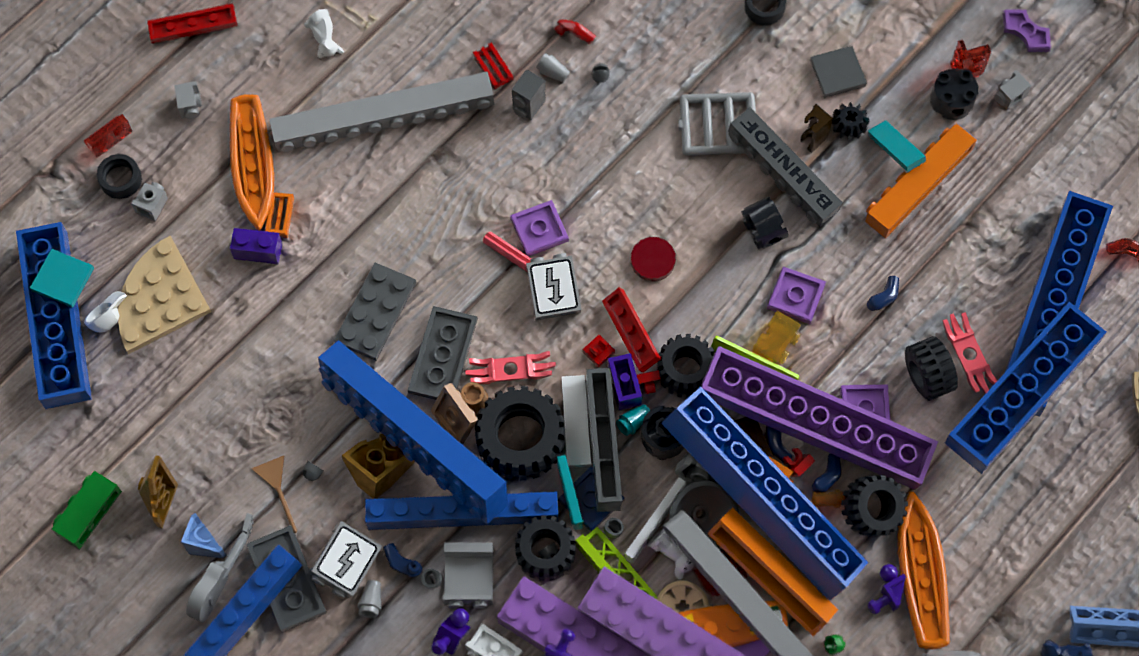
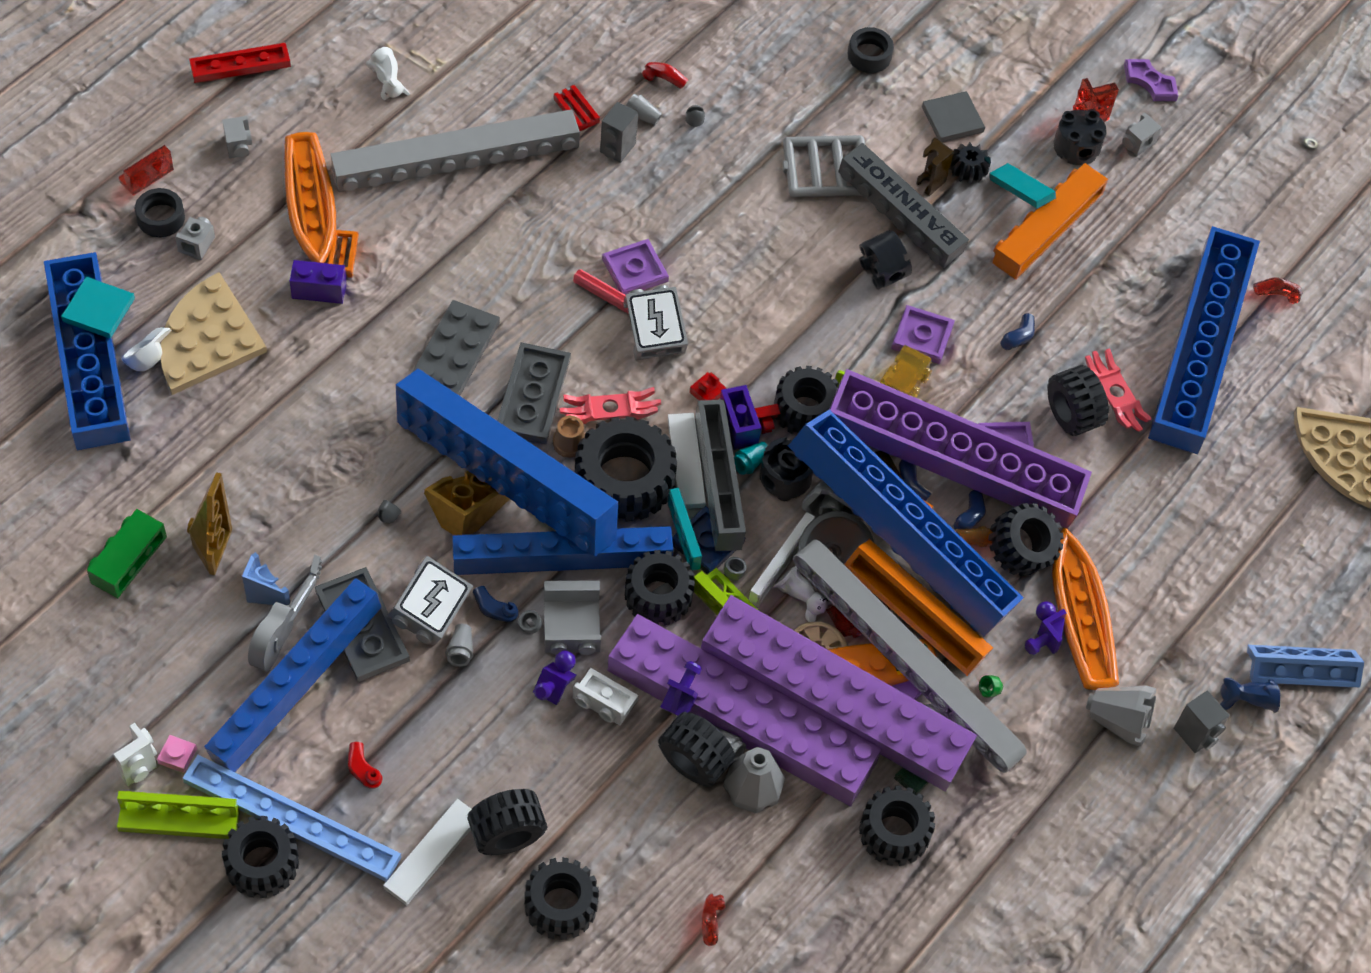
camera: 10 degrees left, 10 degrees down
(272, 474) = (342, 517): medium nougat piece -> none
(454, 413) = (552, 440): medium nougat plate -> none
(631, 330) = (744, 364): red plate -> none
(653, 258) = (763, 297): dark red tile -> none
(800, 463) = (940, 498): red tile -> none
(1025, 387) = (1182, 414): blue brick -> none

